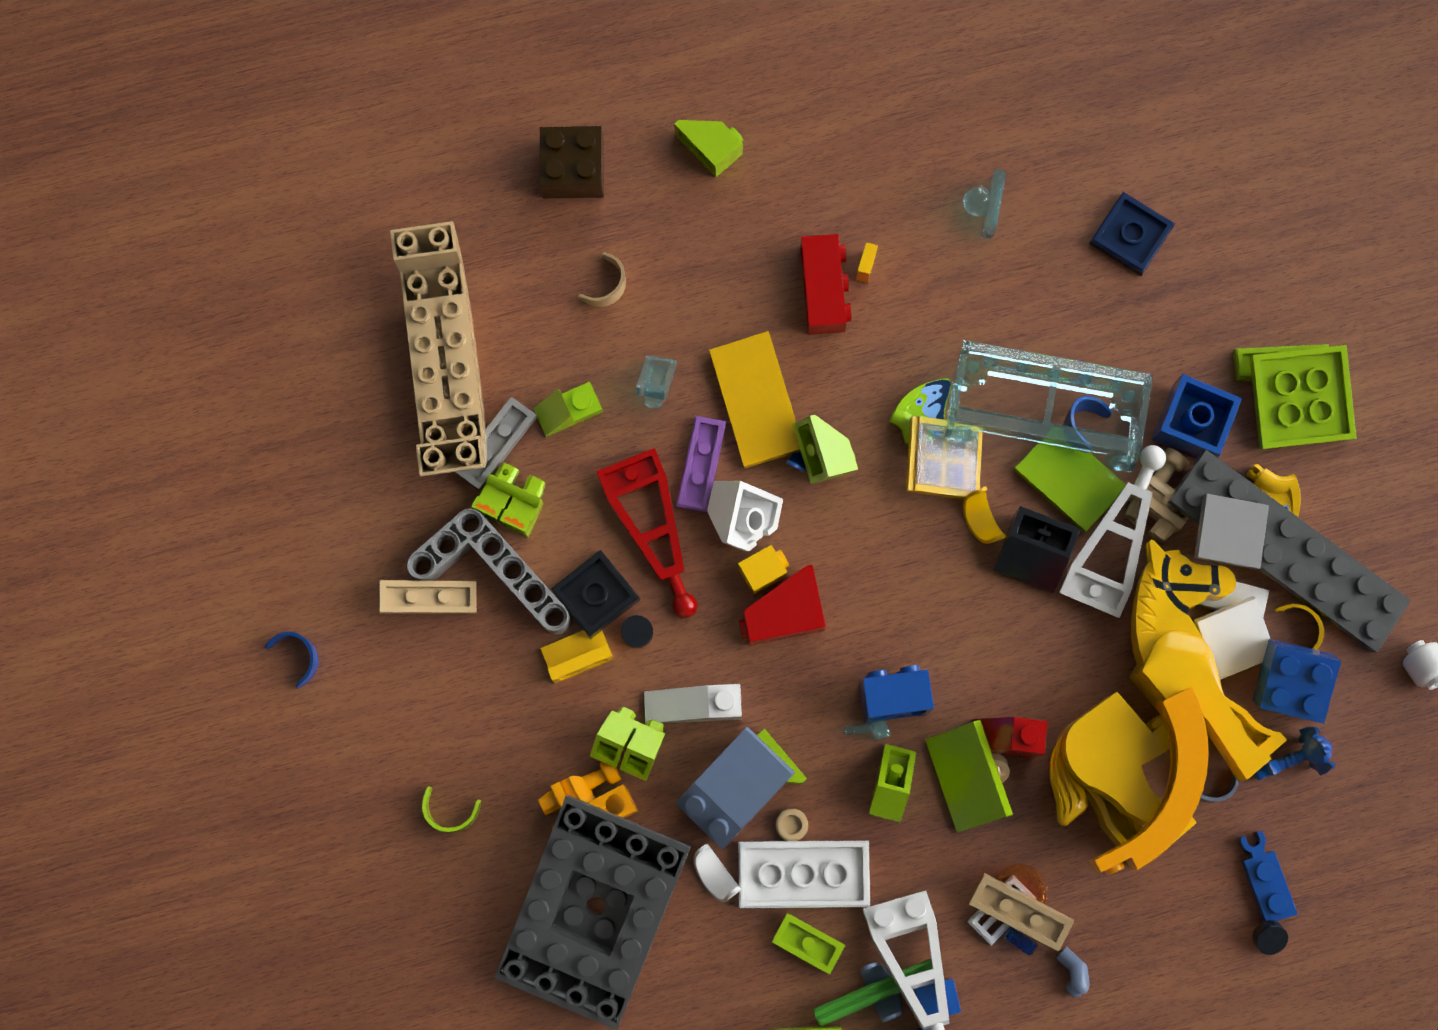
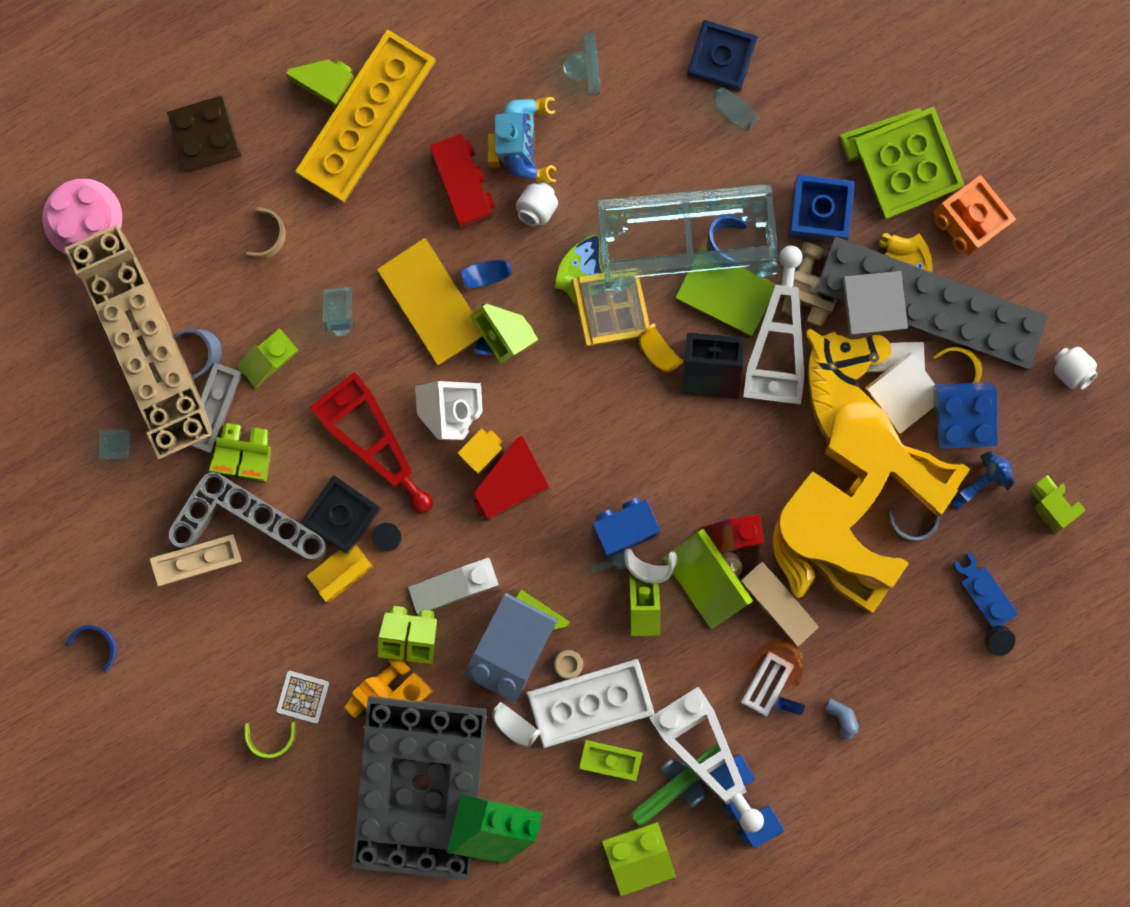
camera: 15 degrees left, 5 degrees up
(381, 452) = (114, 444): none -> clear light blue plate
(419, 201) = (79, 211): none -> bright pink piece
(497, 776) = (302, 696): none -> sticker
(515, 382) = (213, 345): none -> sand blue helmet
(658, 981) = (492, 829): none -> green slope
(701, 464) = (399, 373): medium lavender tile -> none
(743, 191) = (365, 116): none -> yellow plate
(821, 386) = (485, 273): none -> blue helmet
(894, 258) = (517, 138): none -> torso
(895, 330) = (536, 204): none -> white head
(907, 751) = (648, 572): none -> white helmet
(1021, 912) = (783, 681): tan hinge -> none
(1039, 826) = (779, 604): none -> tan slope
(1131, 291) = (736, 109): none -> clear light blue helmet
(1183, 792) = (889, 532): light orange arch -> none
(1357, 472) = (973, 216): none -> orange plate
(1368, 806) = (1053, 506): none -> lime hips

